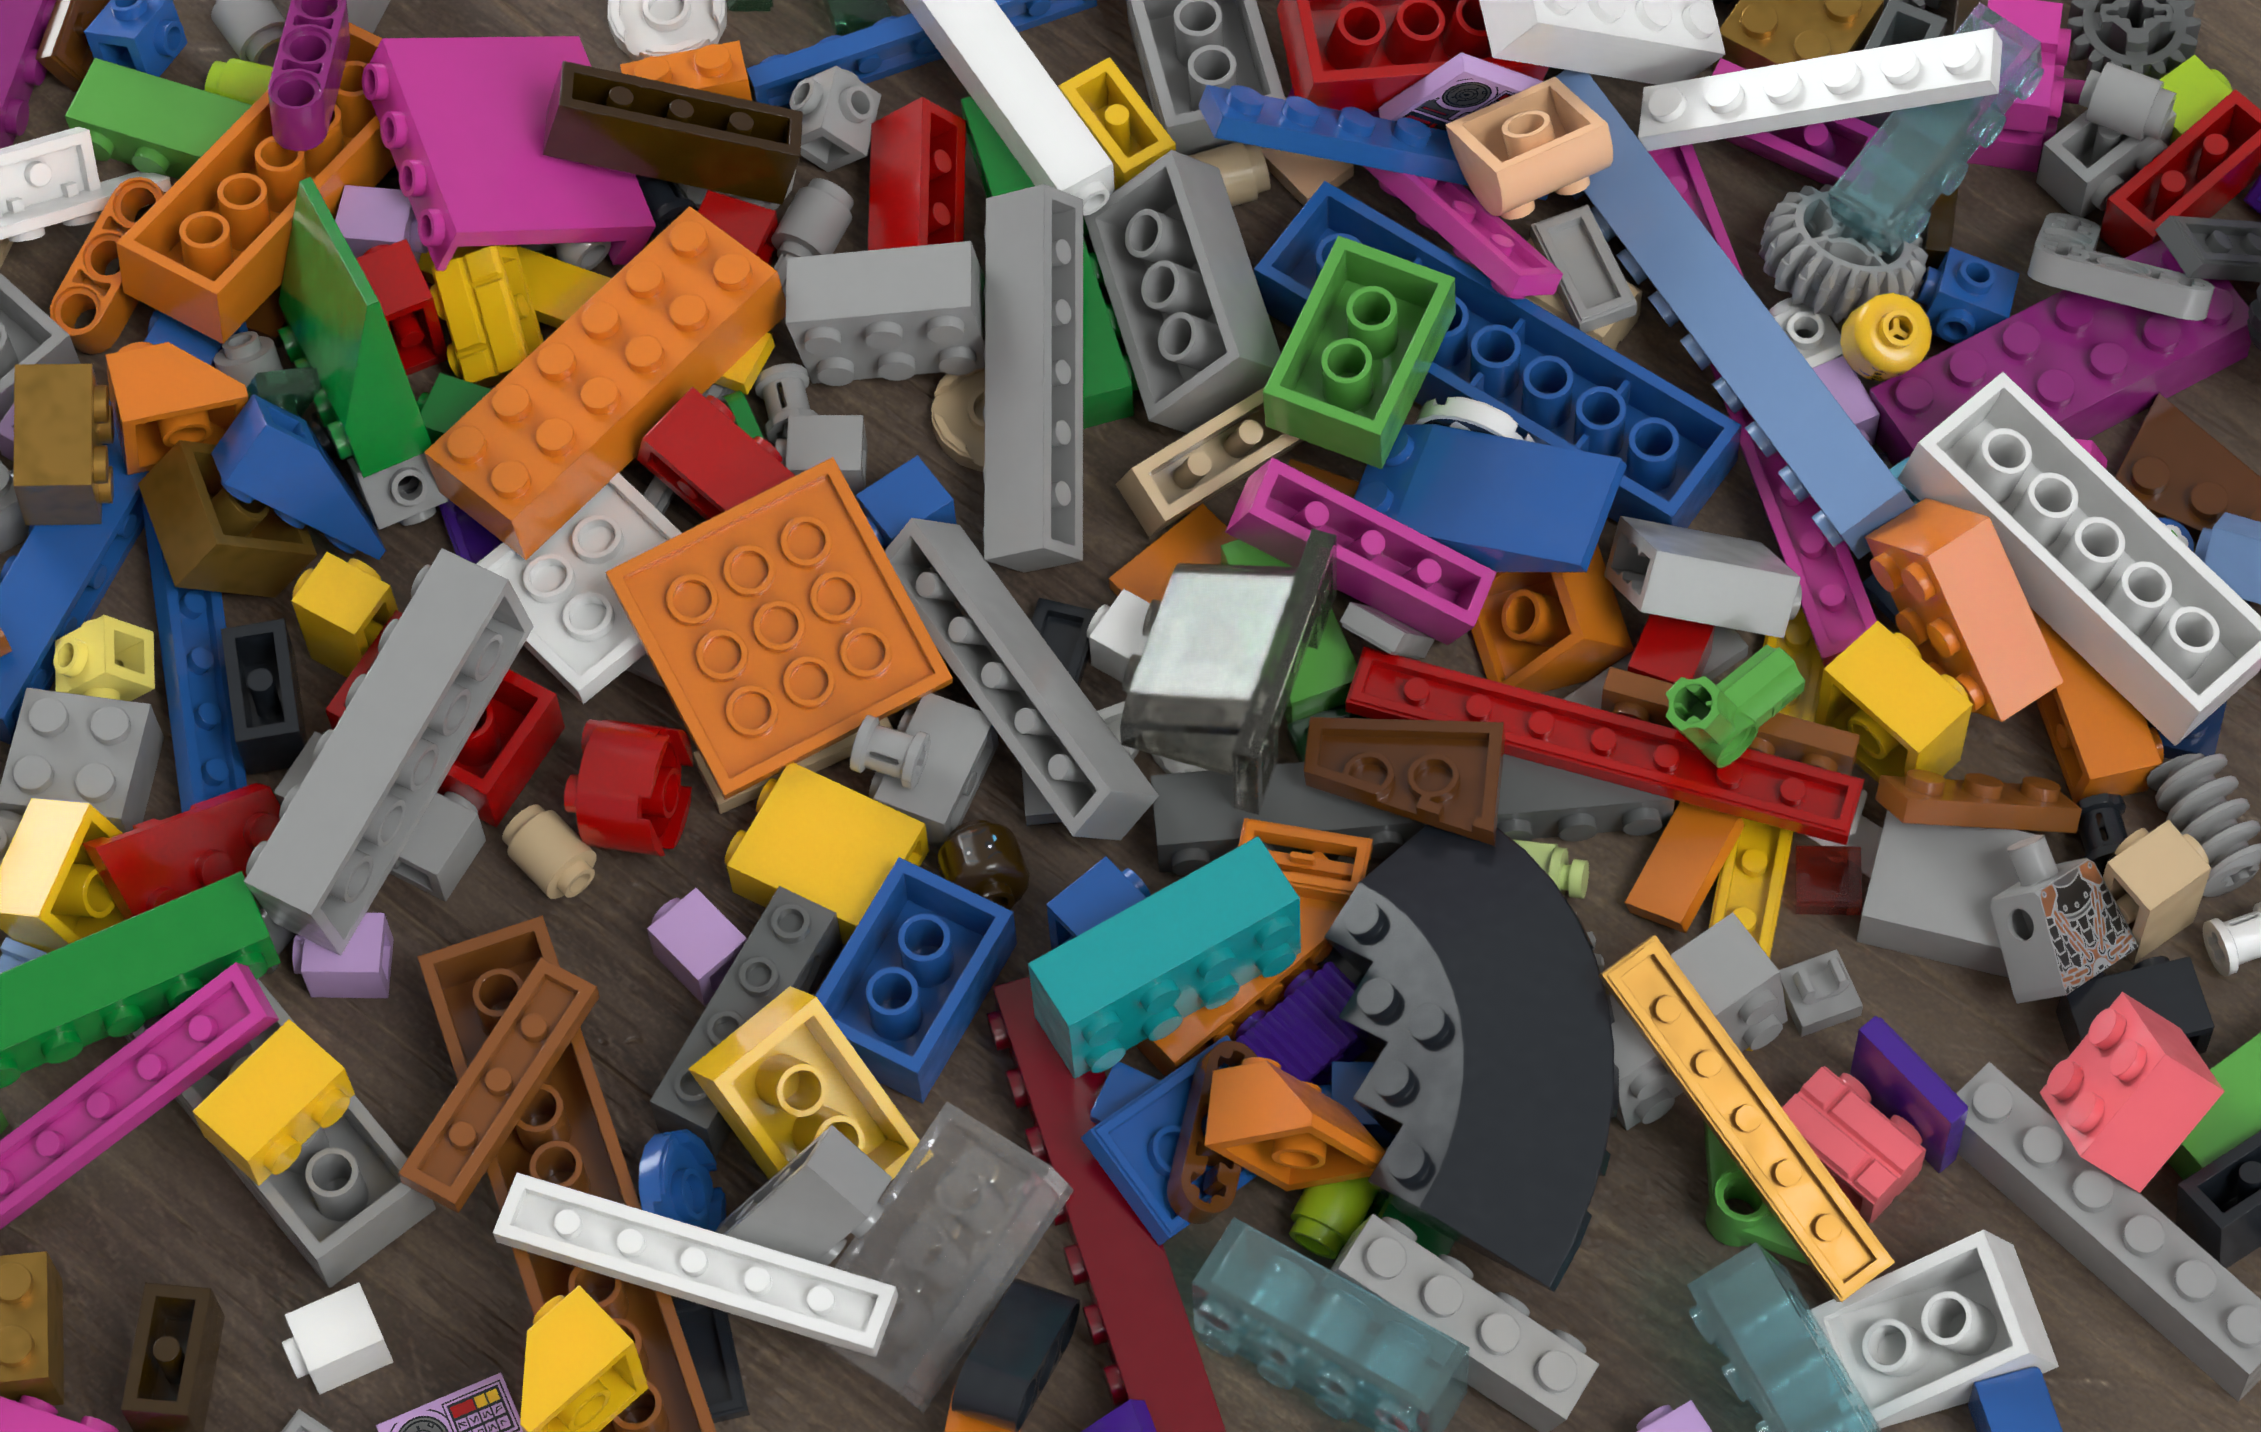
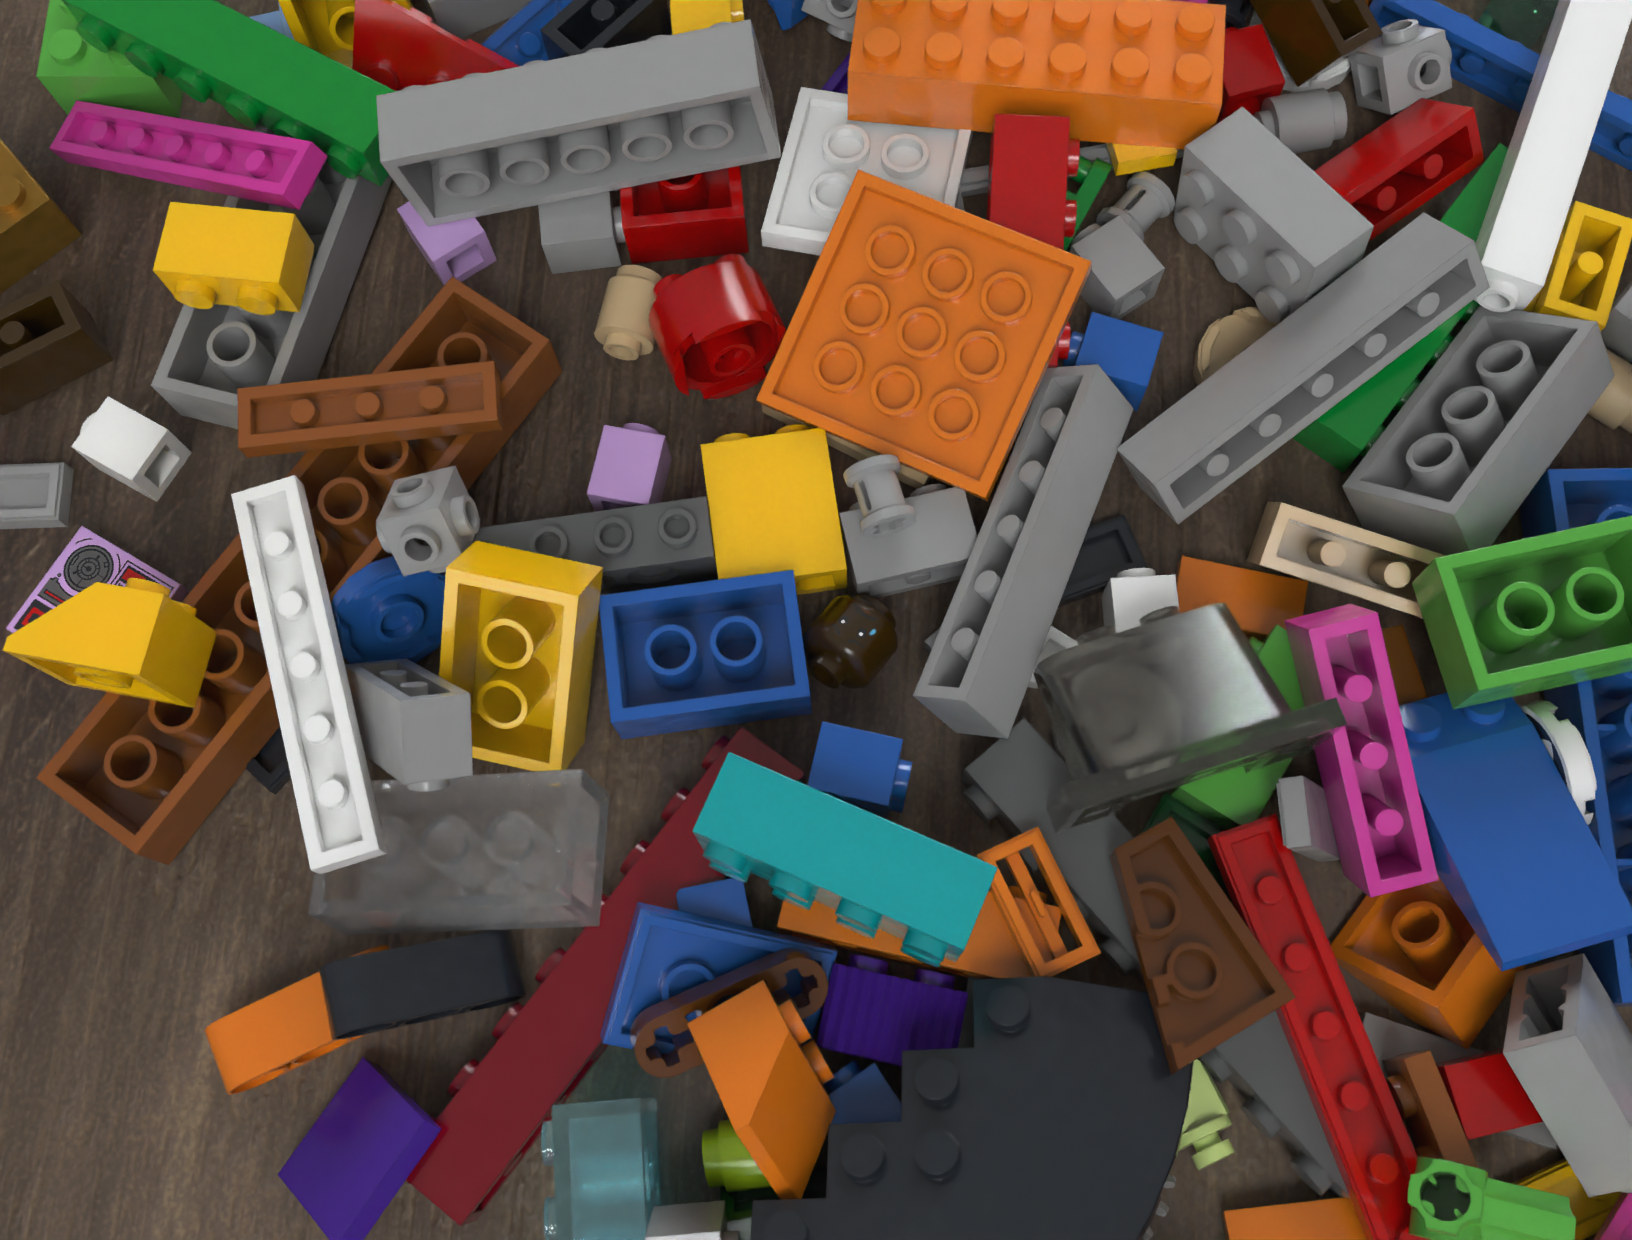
camera: 55 degrees right, 10 degrees up
(643, 1092) = (427, 521): none -> light grey brick

